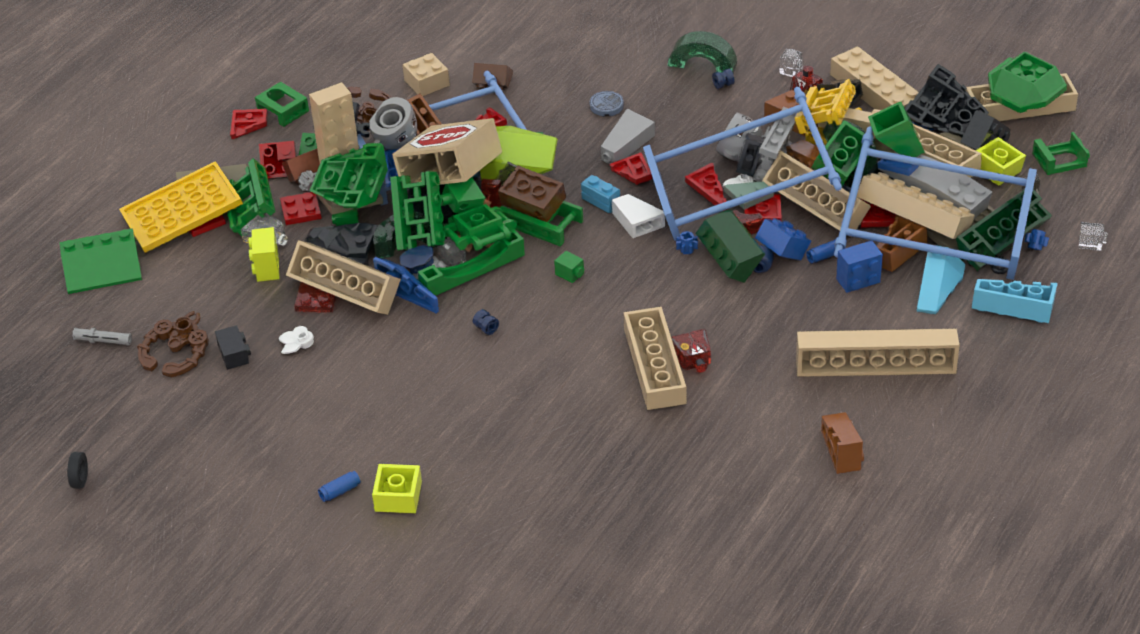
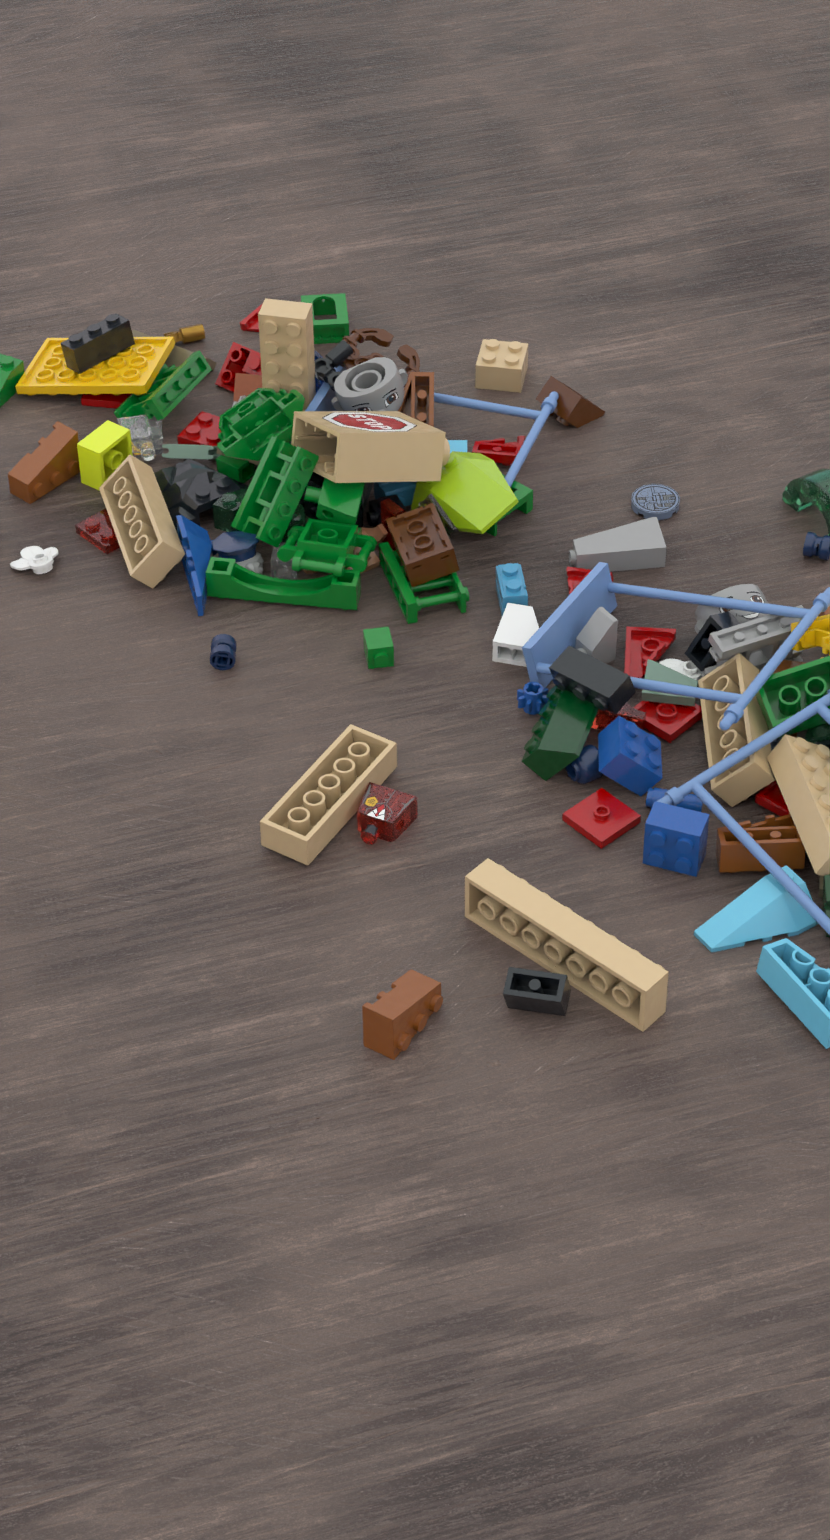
camera: 40 degrees right, 0 degrees up
(175, 190) = (97, 343): none -> black brick
(205, 158) = (188, 333): none -> pearl gold bar
(233, 280) = (47, 466): none -> dark orange wedge
(307, 224) = (188, 451): none -> sand green piece
(684, 190) = (599, 636): none -> light grey slope
(728, 208) = (592, 680): none -> black brick
(799, 282) = (601, 818): none -> red plate
(893, 385) = (537, 991): none -> black brick

